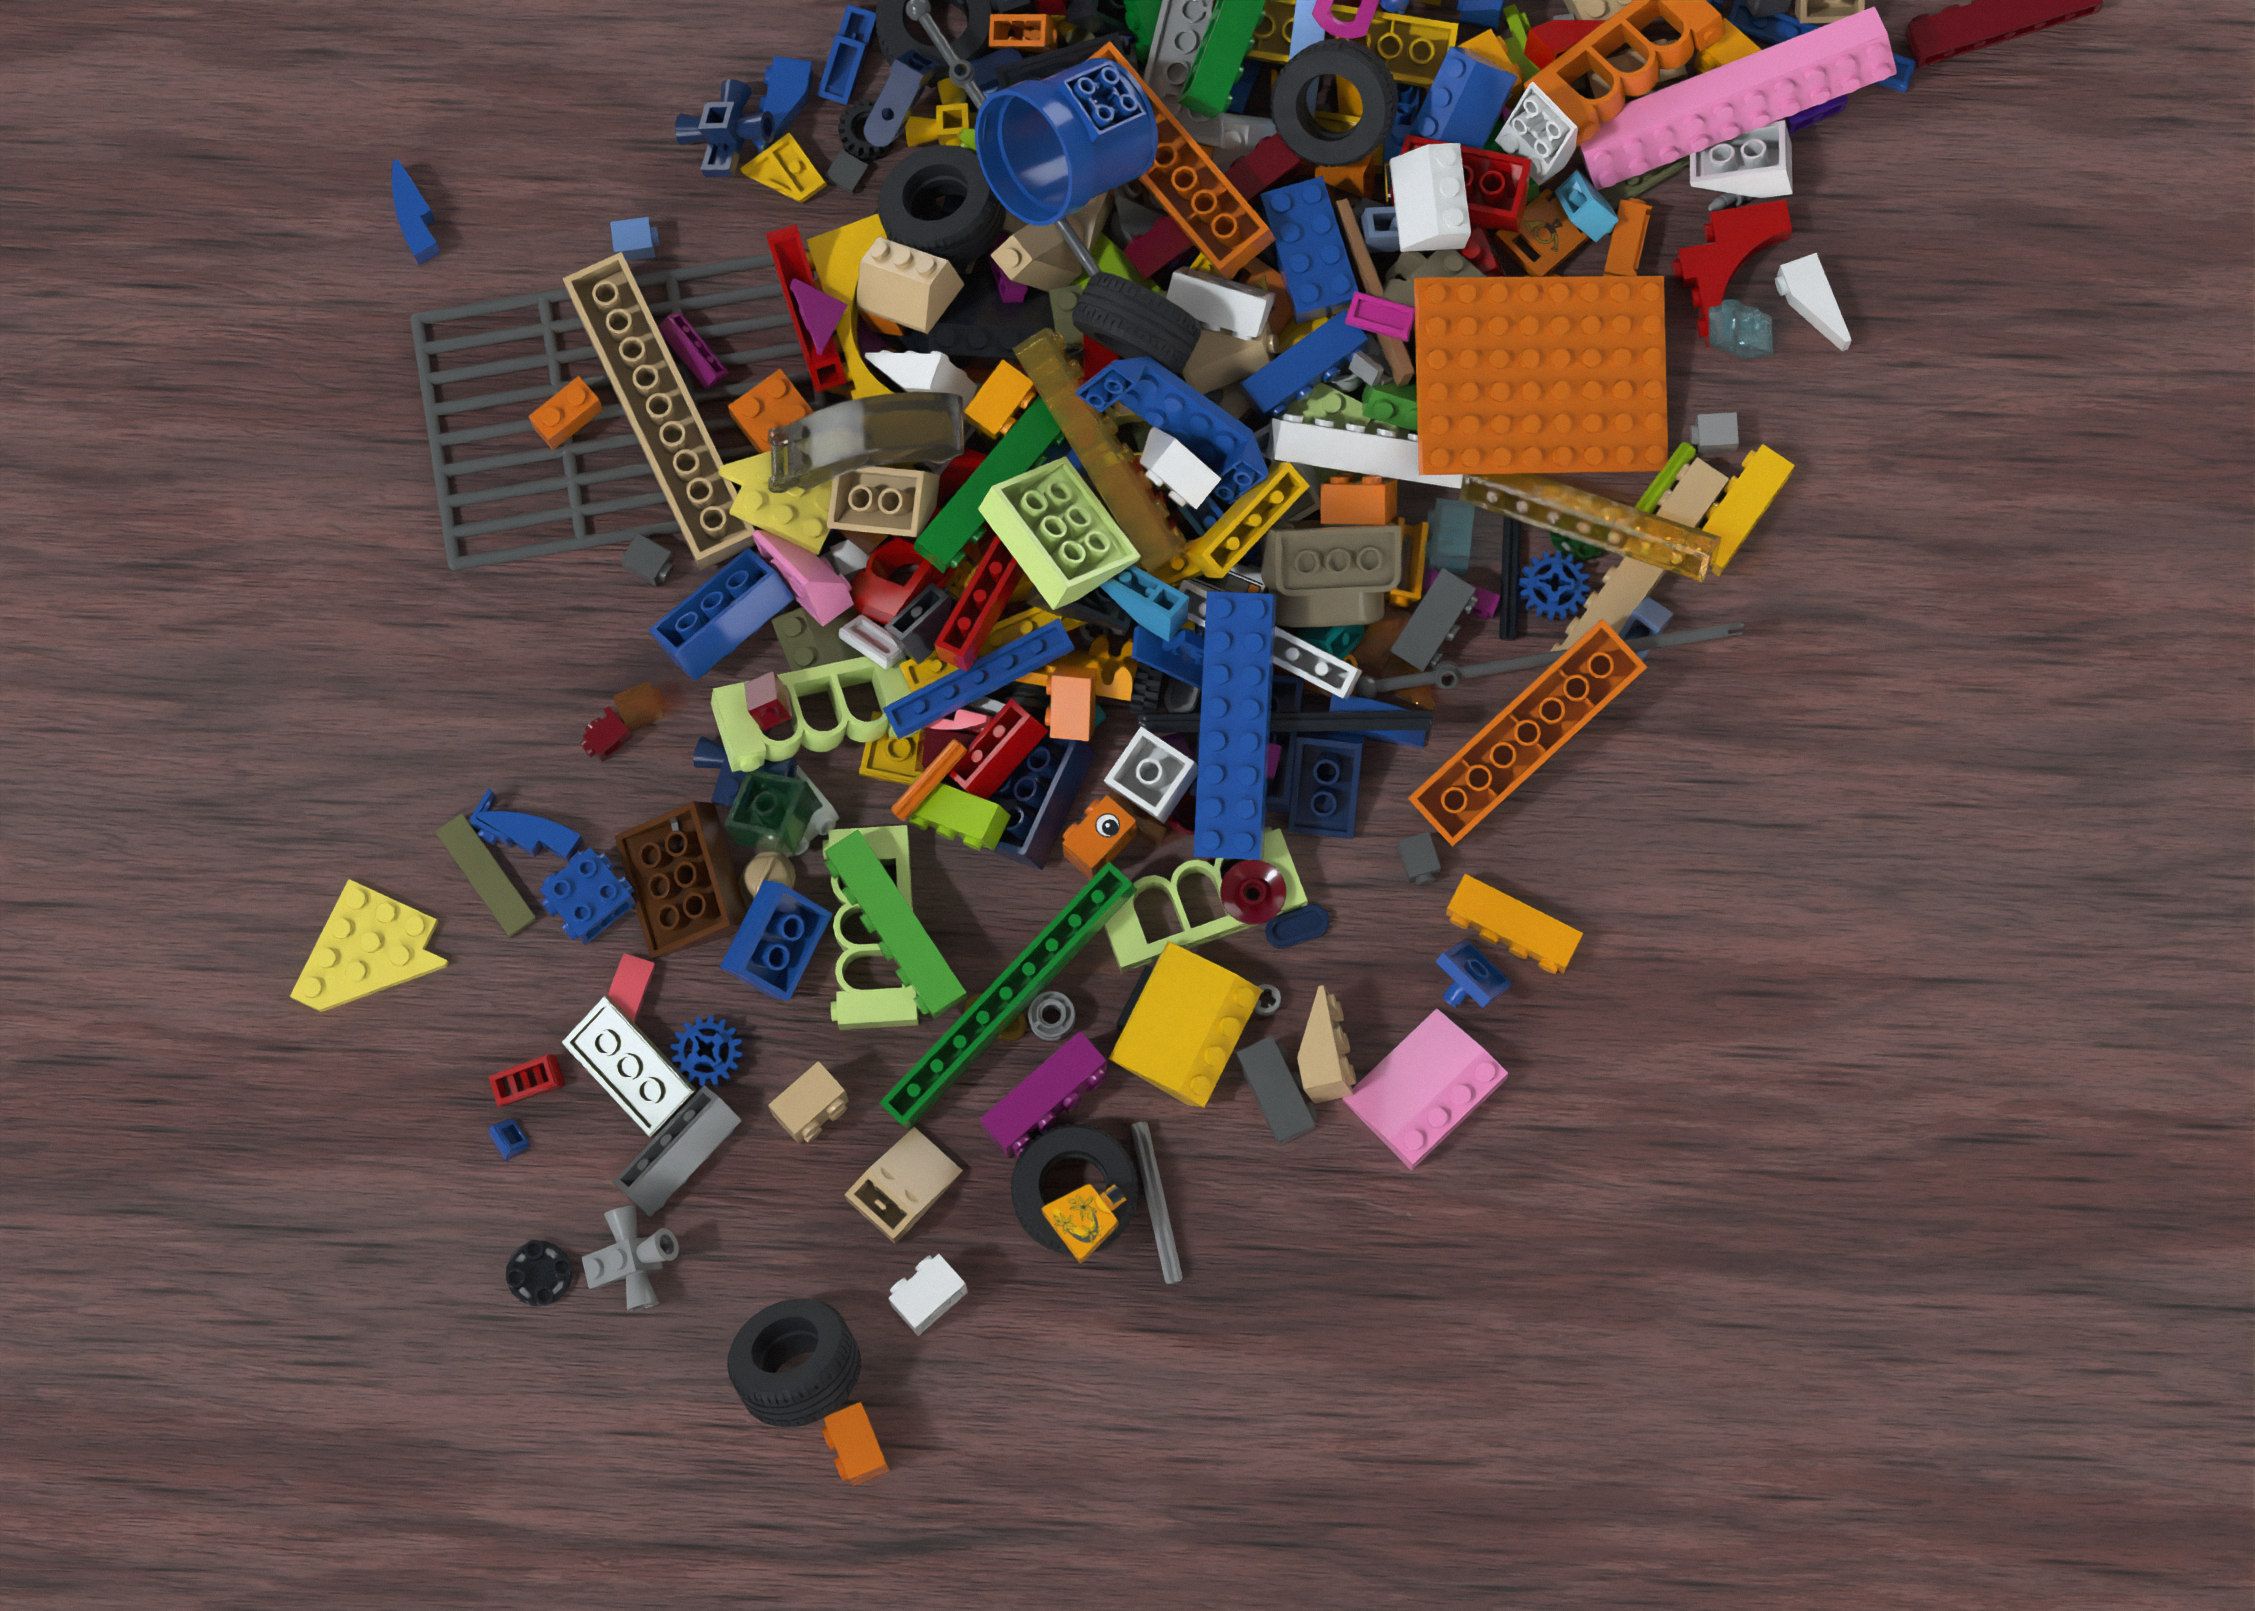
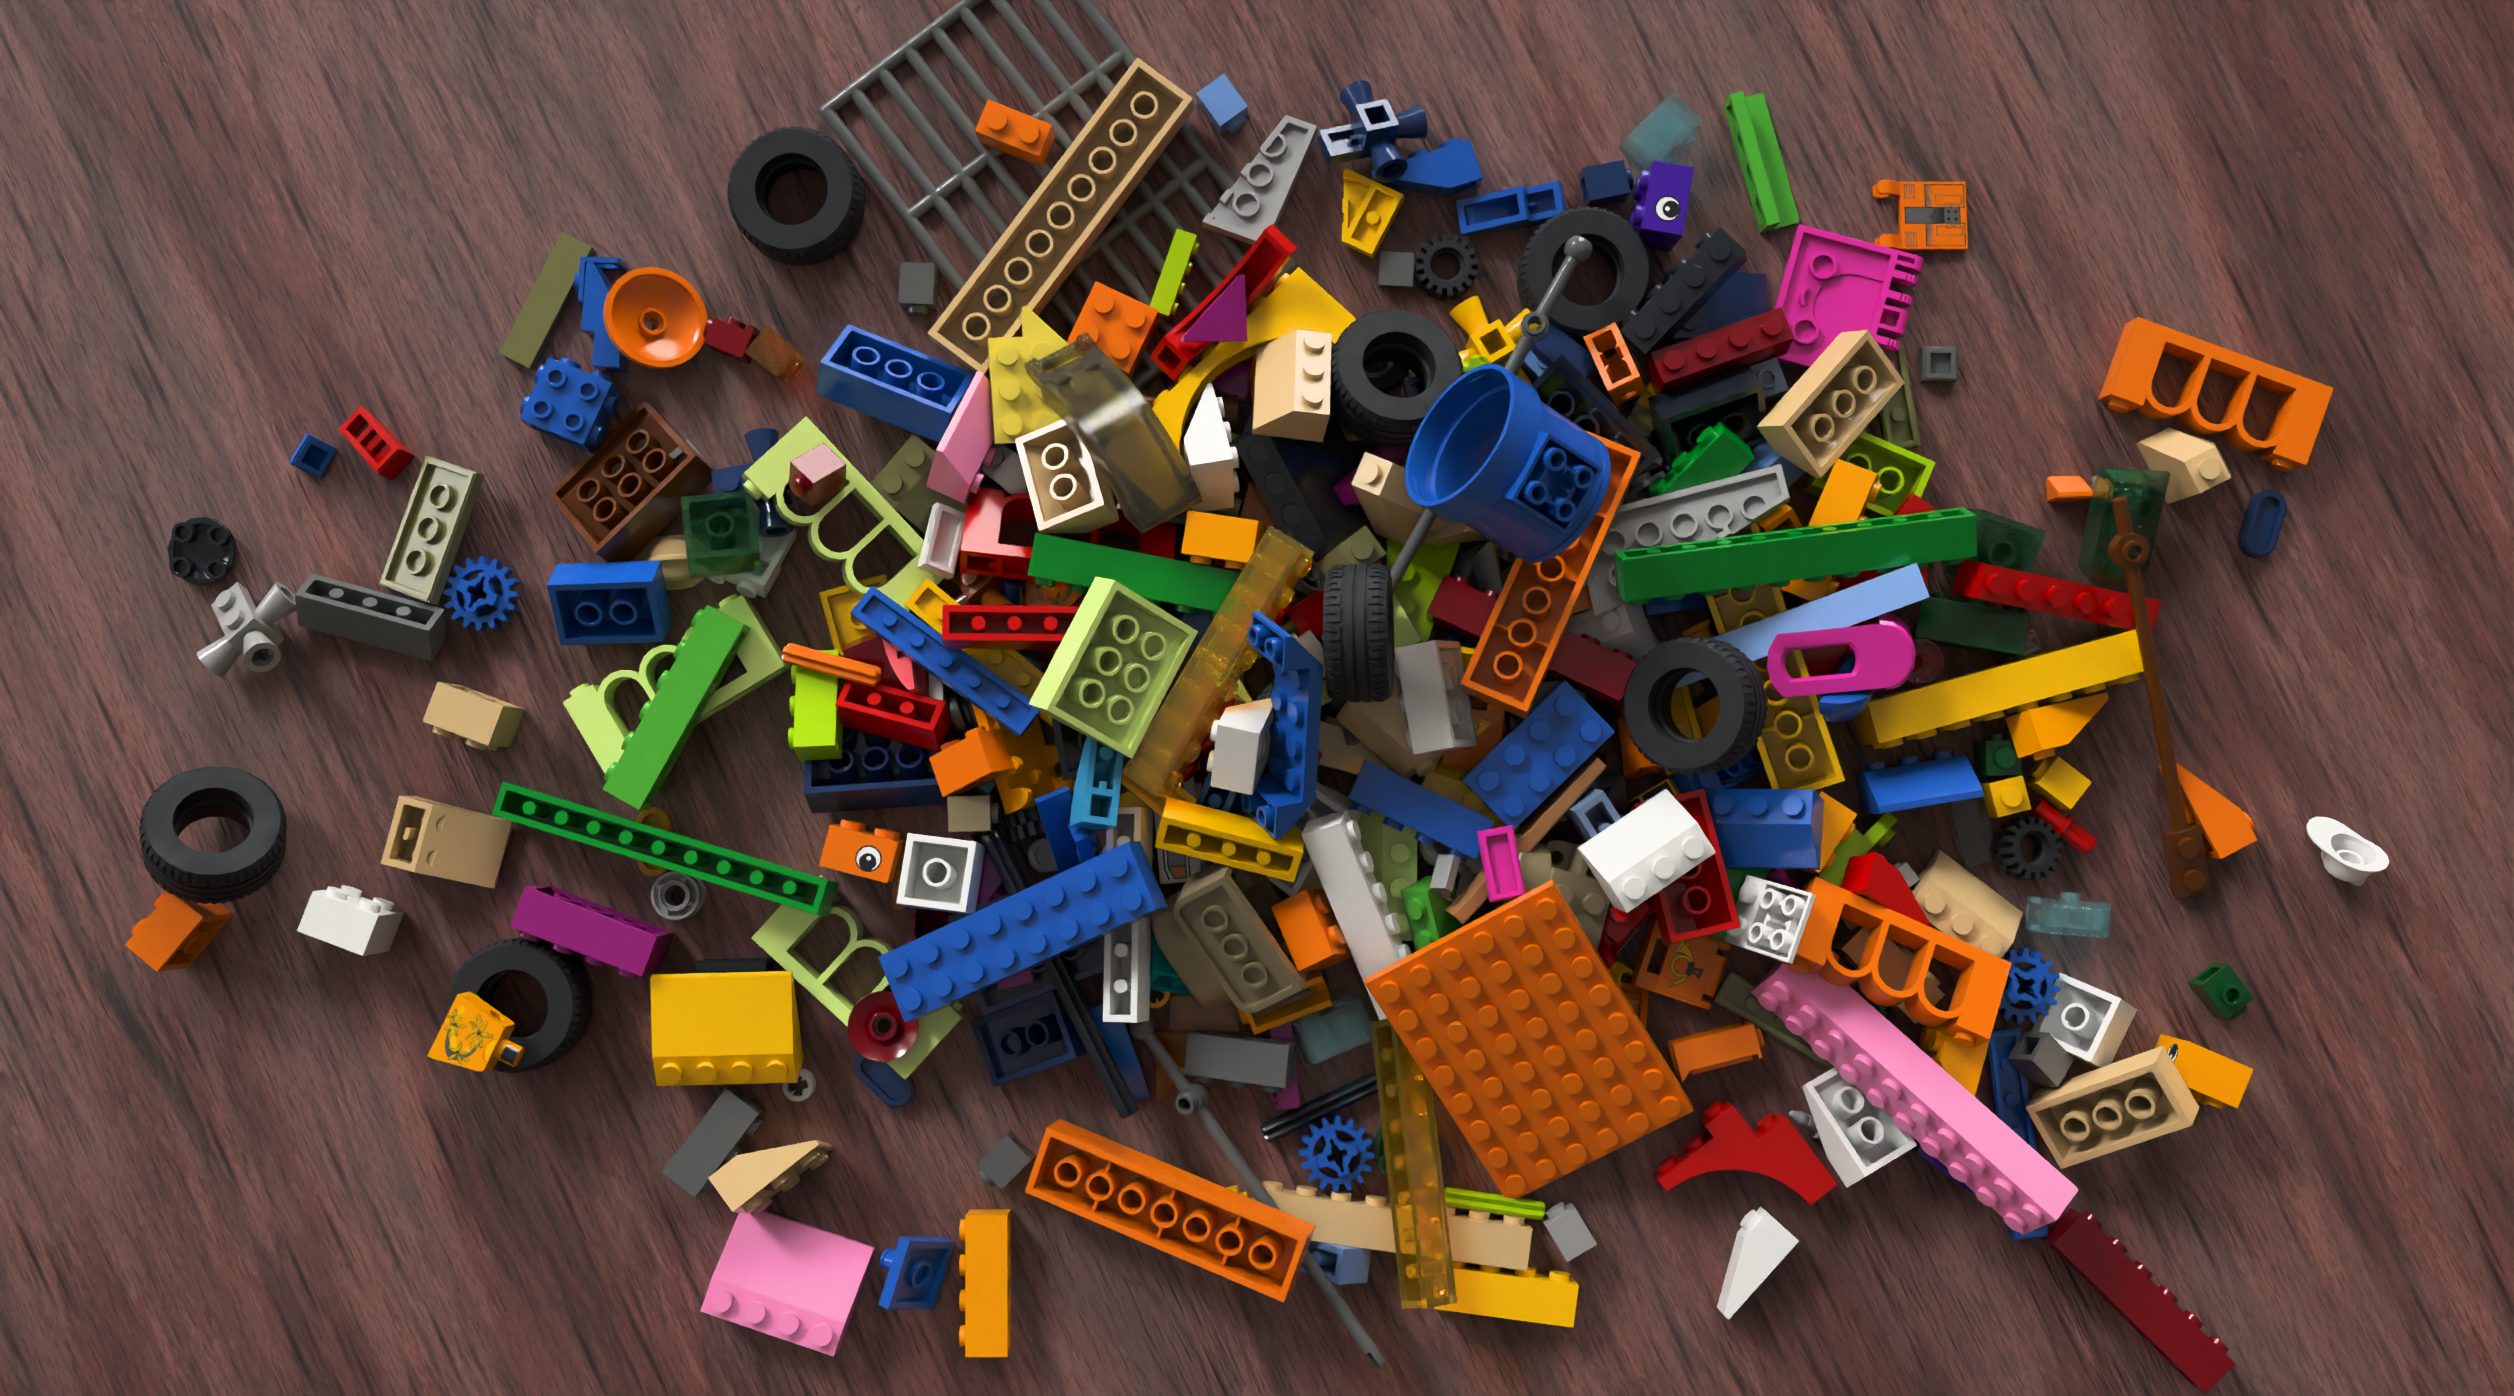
camera: 60 degrees right, 10 degrees up
(366, 949) = (423, 229): light yellow wing -> none
(510, 575) = (768, 160): none -> black tyre
(555, 784) = (666, 302): none -> orange dish
(630, 984) = (508, 490): coral slope -> none
(692, 350) = (1140, 219): magenta piece -> none
(724, 245) = (1264, 184): none -> light grey wing
(750, 345) = (1173, 273): none -> lime piece
(901, 94) = (1485, 278): dark blue piece -> none
(920, 623) = (967, 579): black slope -> none
(1114, 730) = (974, 813): none -> dark tan brick
(1156, 1202) = (556, 1082): light grey axle -> none
(1586, 206) = (1728, 994): medium azure slope -> none
(1740, 330) = (1682, 1207): clear light blue brick -> none

